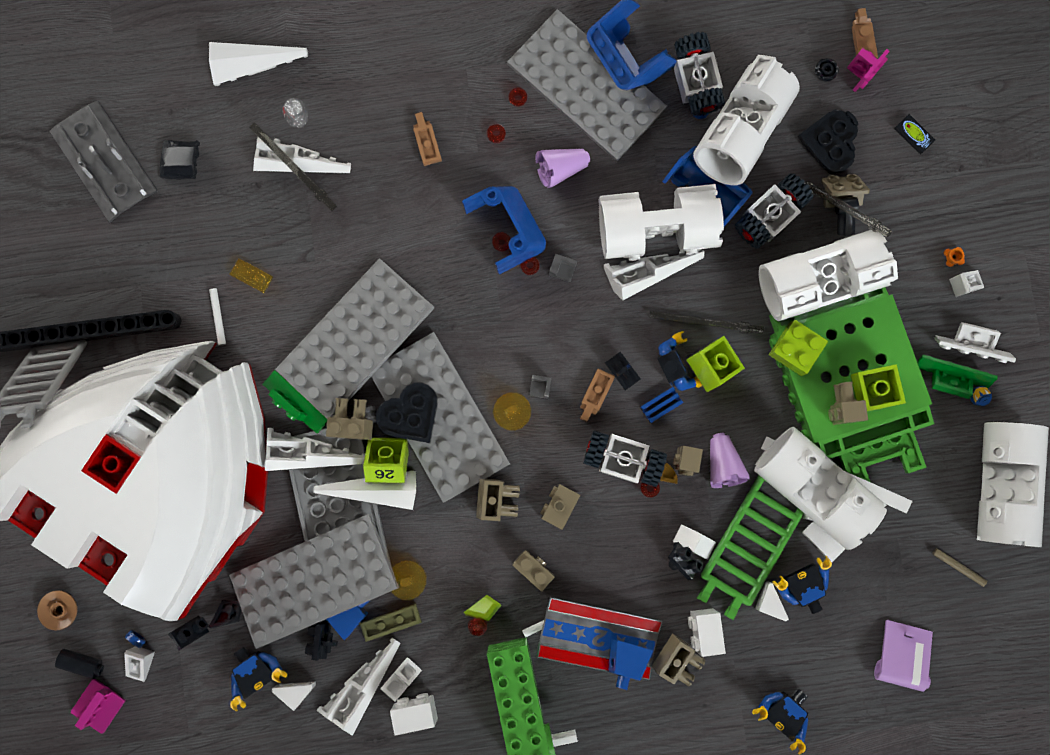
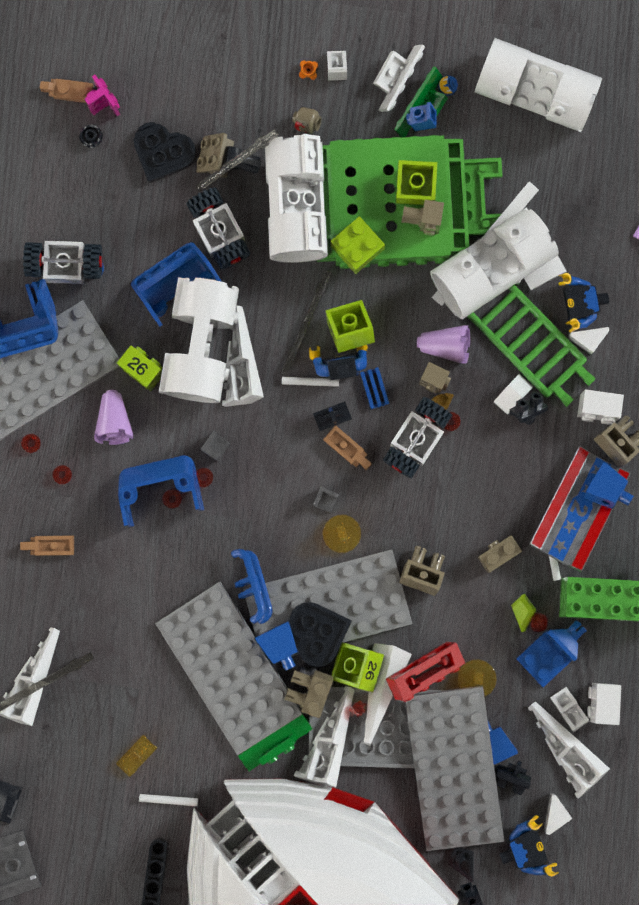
camera: 70 degrees left, 0 degrees up
(345, 472) = (358, 709): none -> clear red plate
(377, 512) = (405, 688): none -> red brick
(387, 379) = (279, 645): none -> blue torso
(390, 622) = (513, 705): olive tile -> none
(440, 342) = (258, 586): none -> blue piece
(451, 647) = (551, 652): none -> blue plate
(560, 506) = (446, 512): dark tan brick -> none
(619, 171) = (140, 368): none -> lime brick
(650, 341) = (309, 381): none -> white bar
(746, 121) = (125, 230): white cylinder -> none
(906, 267) = (307, 120): none -> dark tan head
(914, 134) = (178, 70): tile -> none
(943, 378) = (422, 117): none -> blue brick
(959, 567) = (600, 155): dark tan bar -> none

